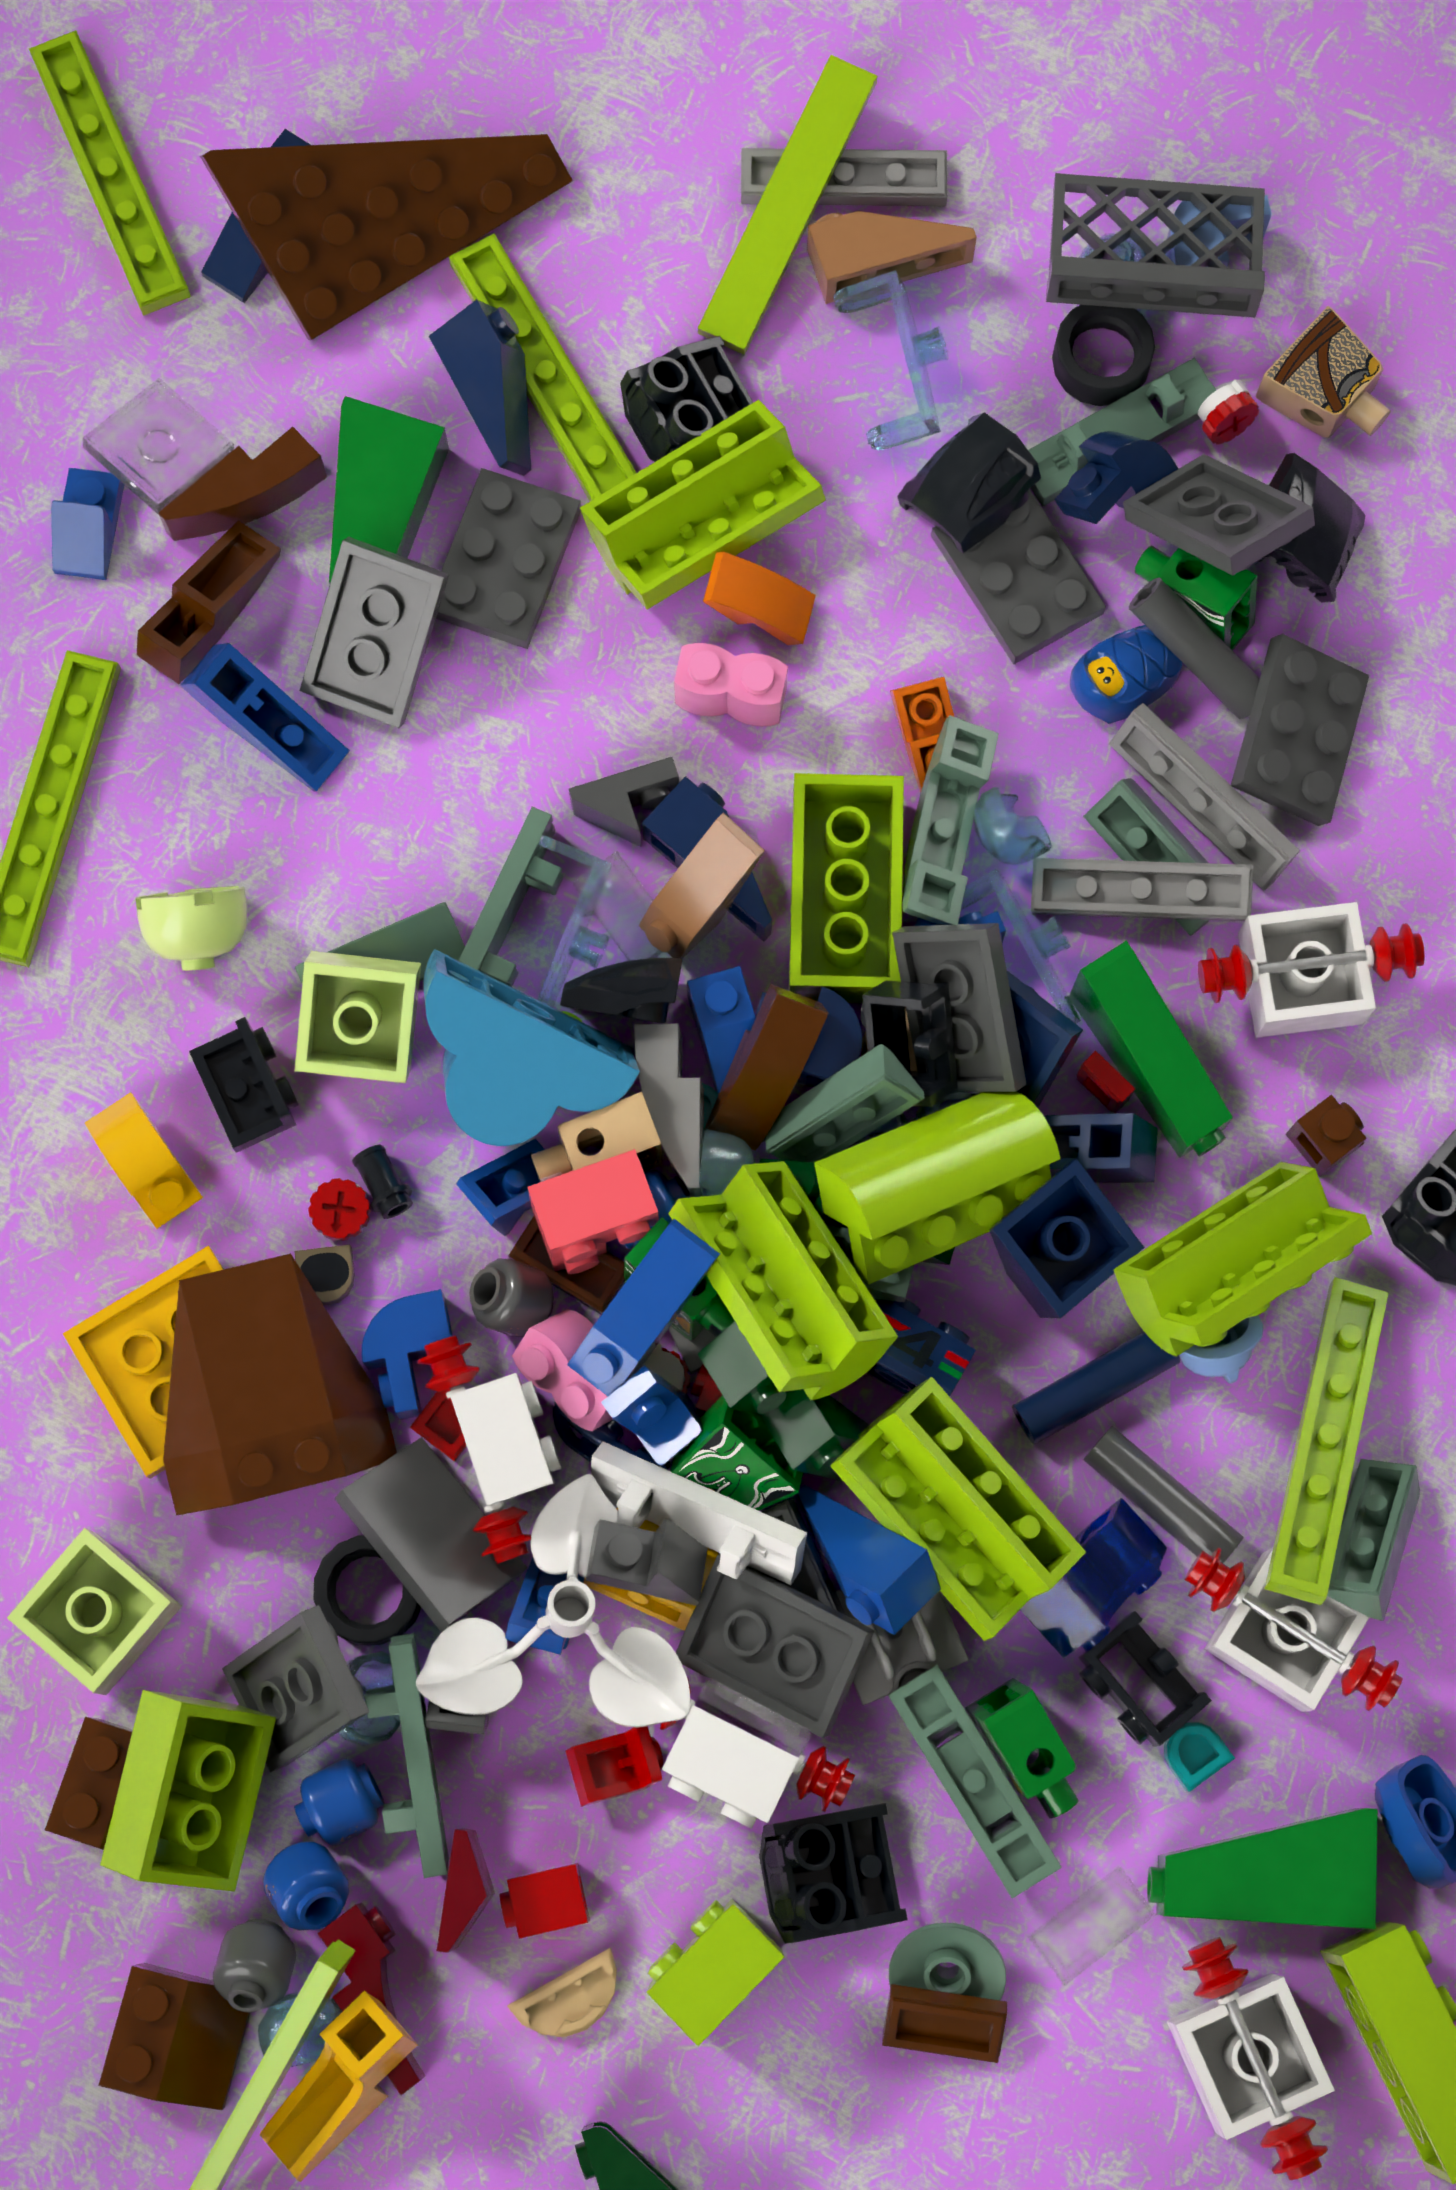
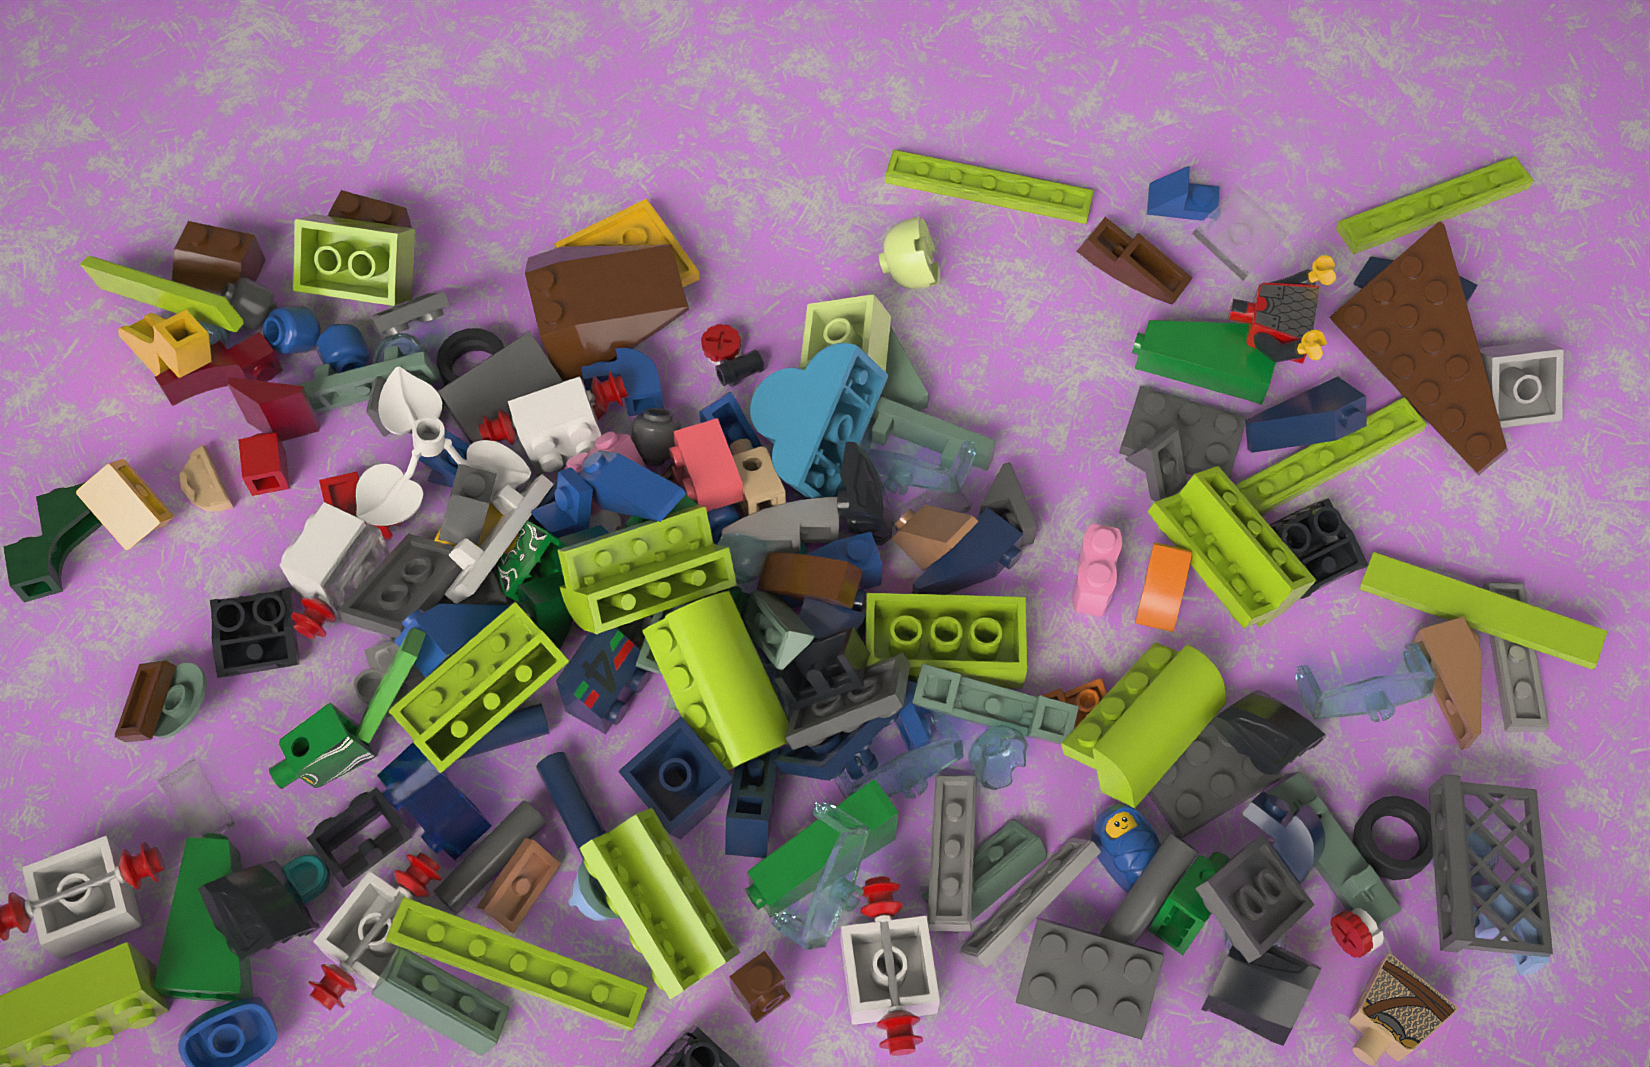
camera: 90 degrees right, 15 degrees down
(94, 1612) = (471, 216): yellowish green brick -> none
(143, 1160) = (754, 228): yellow brick -> none
(243, 1085) = (806, 285): black bracket -> none
(244, 488) = (1212, 274): reddish brown slope -> none
(264, 715) = (1055, 293): blue slope -> none
(328, 1271) = (680, 340): tile -> none
(347, 391) = (1285, 313): none -> torso
(373, 632) = (1115, 345): plate -> none
(429, 92) = (1525, 382): none -> light grey slope
(562, 588) = (1162, 462): none -> dark grey slope
(629, 2103) = (124, 503): none -> panel
(713, 1971) = (195, 538): lime brick -> none
(956, 1634) = (390, 684): none -> bright green tile
(960, 634) = (1148, 720): none -> lime brick
(974, 1781) = (260, 736): sand green hinge -> none
(1105, 1082) = (799, 819): red tile -> none
(1204, 1454) = (519, 885): none -> nougat plate
(1221, 1022) = (835, 884): none -> clear light blue piece
(1268, 1795) = (257, 909): none -> black slope

